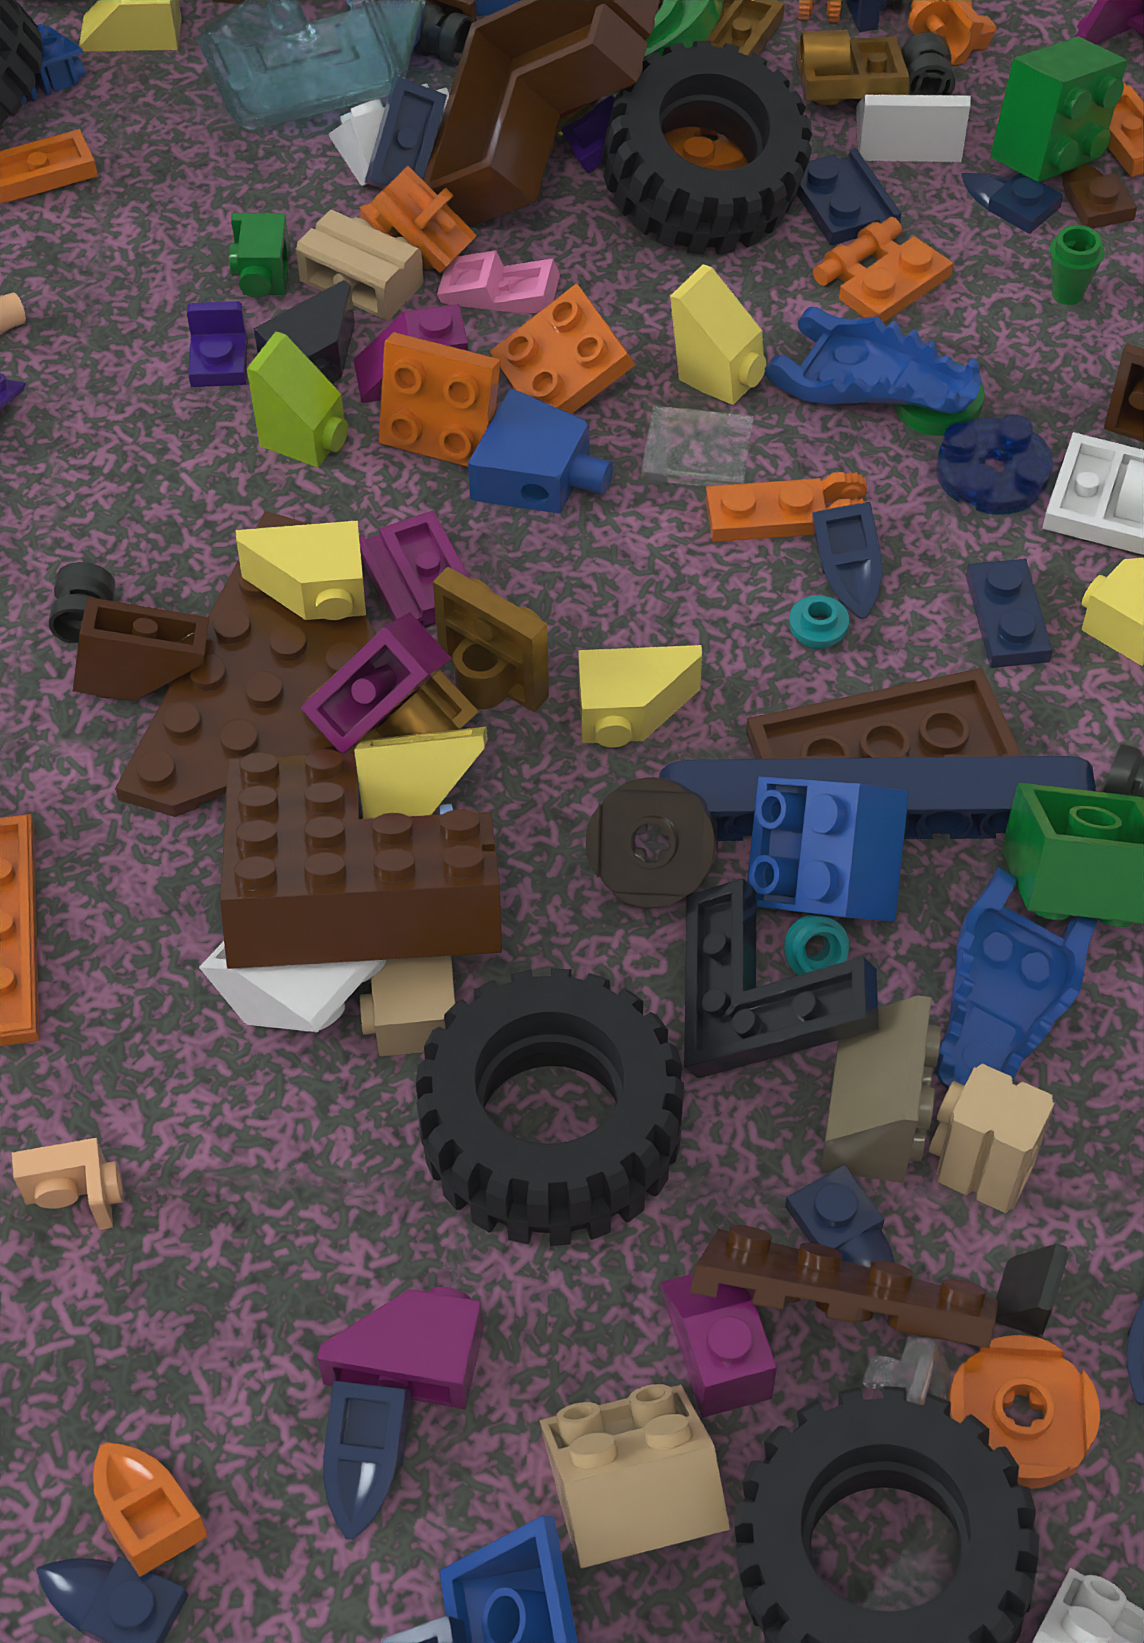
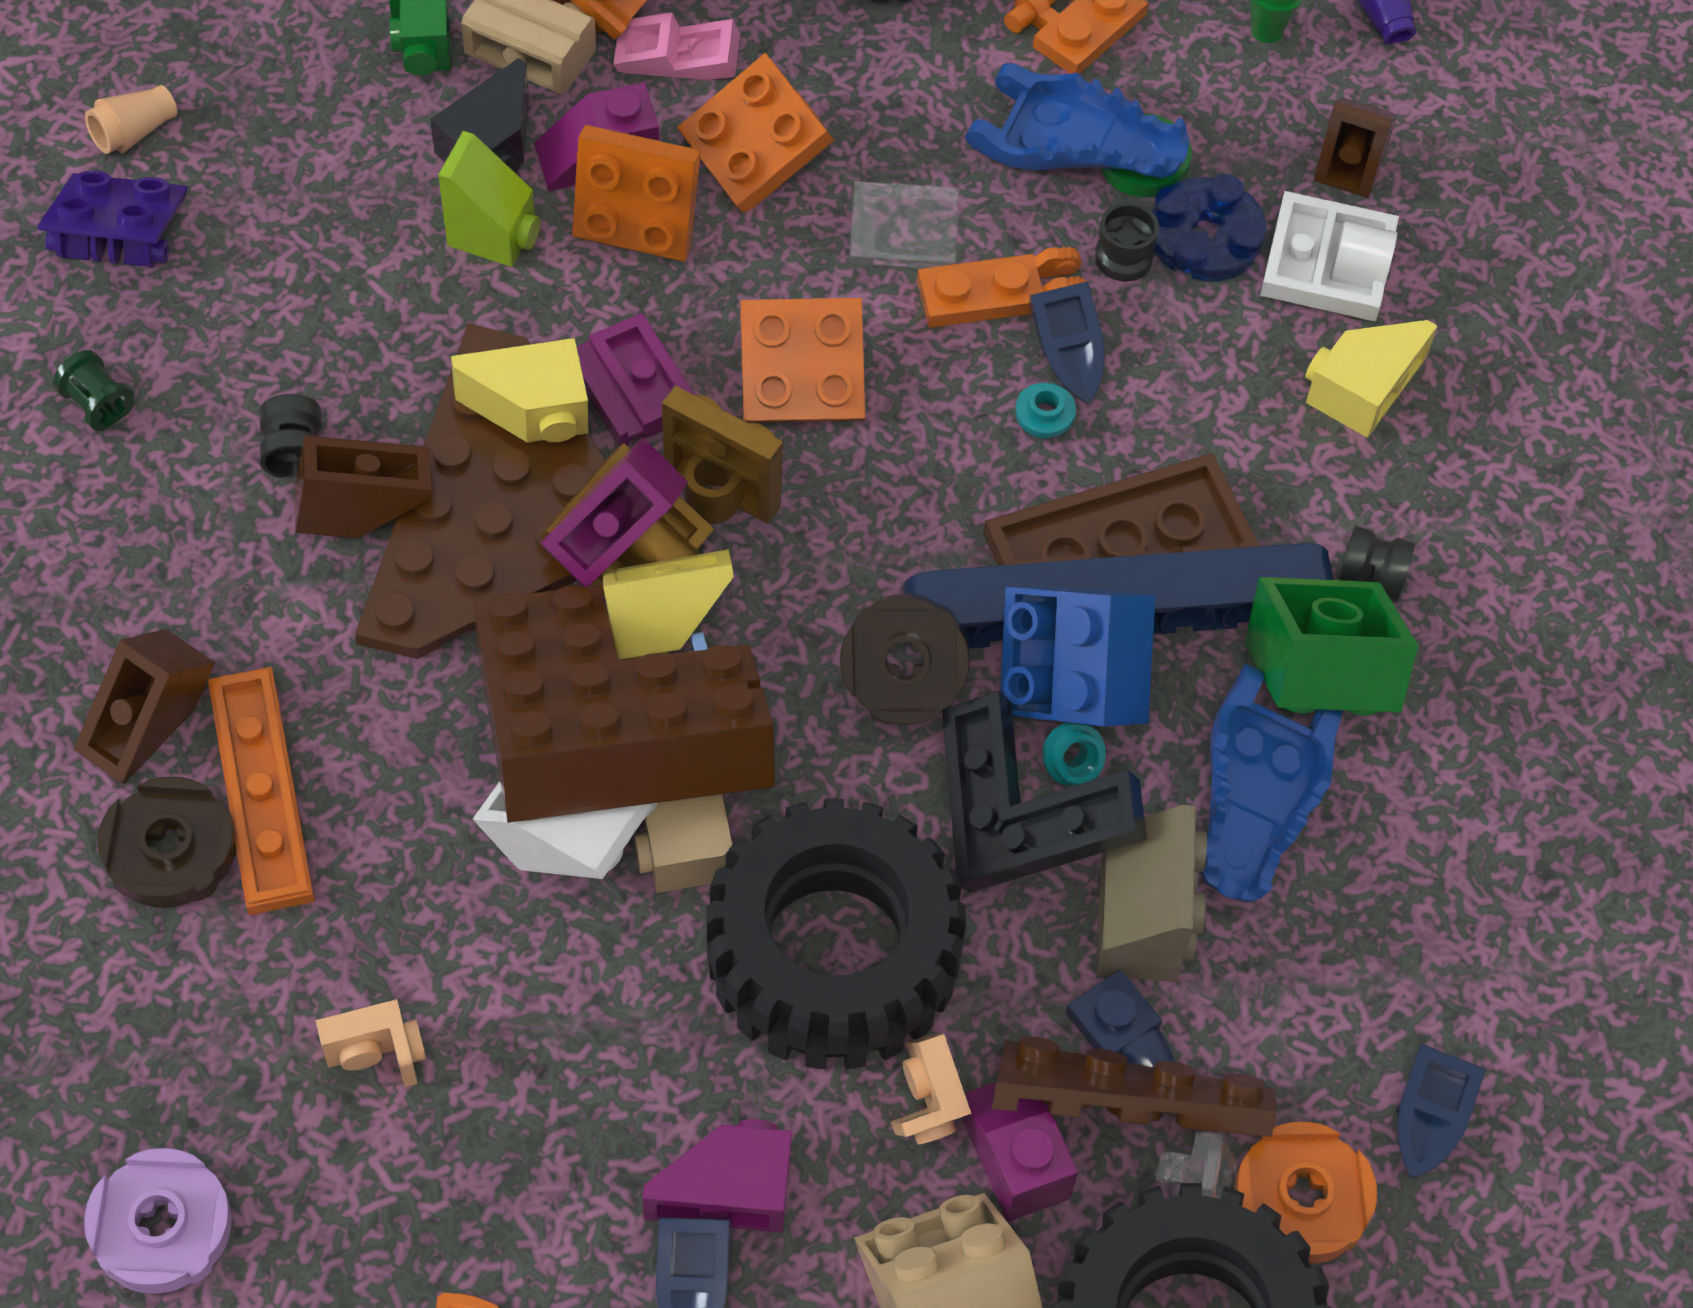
camera: 10 degrees left, 5 degrees up
(217, 344) = (389, 134): dark purple bracket -> none
(534, 457) = (740, 246): blue torso -> none
(583, 560) = (802, 360): none -> orange plate
(634, 690) = (867, 498): light yellow slope -> none
(635, 1258) = (935, 1078): none -> light nougat bracket
(715, 338) = (915, 107): light yellow slope -> none
(913, 470) = (1126, 241): none -> pearl dark grey wheel
(990, 1136) = (1258, 934): tan brick -> none
(1008, 613) = (1233, 389): dark blue plate -> none
(1031, 1288) = (1305, 1075): pearl dark grey slope -> none

